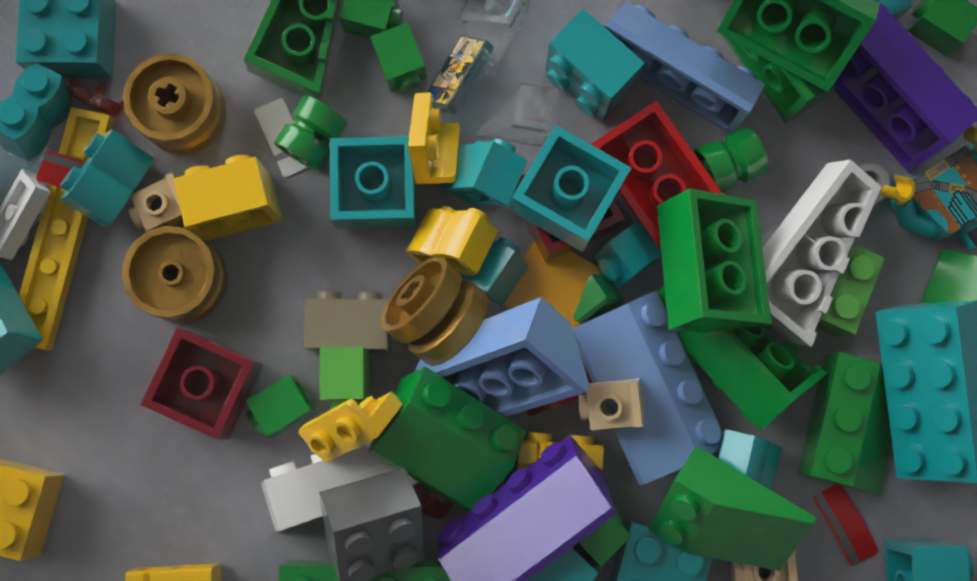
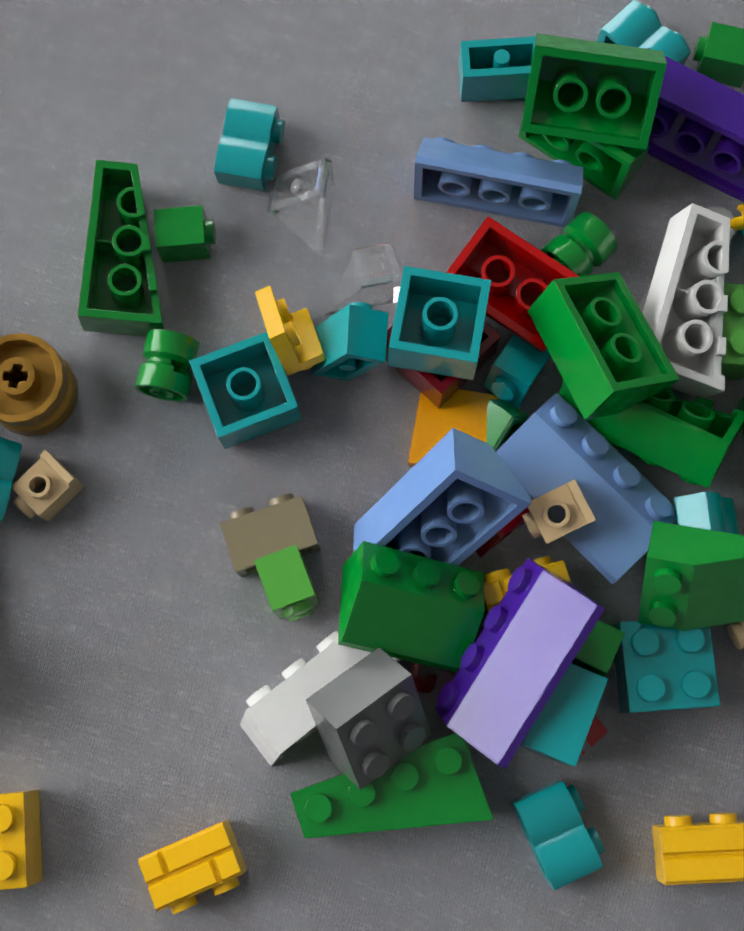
camera: 15 degrees left, 5 degrees down
(151, 270) = (58, 541): pearl gold wheel -> none
(202, 384) = (147, 643): dark red brick -> none
(227, 198) = (108, 454): yellow brick -> none
(272, 120) = (124, 369): white sticker -> none
(279, 407) = (231, 640): green brick -> none
(349, 425) = (310, 624): yellow bracket -> none
(399, 58) = (227, 266): green brick -> none
(435, 311) = (352, 487): pearl gold wheel -> none
(455, 235) = (343, 416): yellow brick -> none
(459, 73) = (290, 259): tile -> none
(499, 271) = (391, 431): teal brick -> none
(592, 66) = (414, 207): teal brick -> none

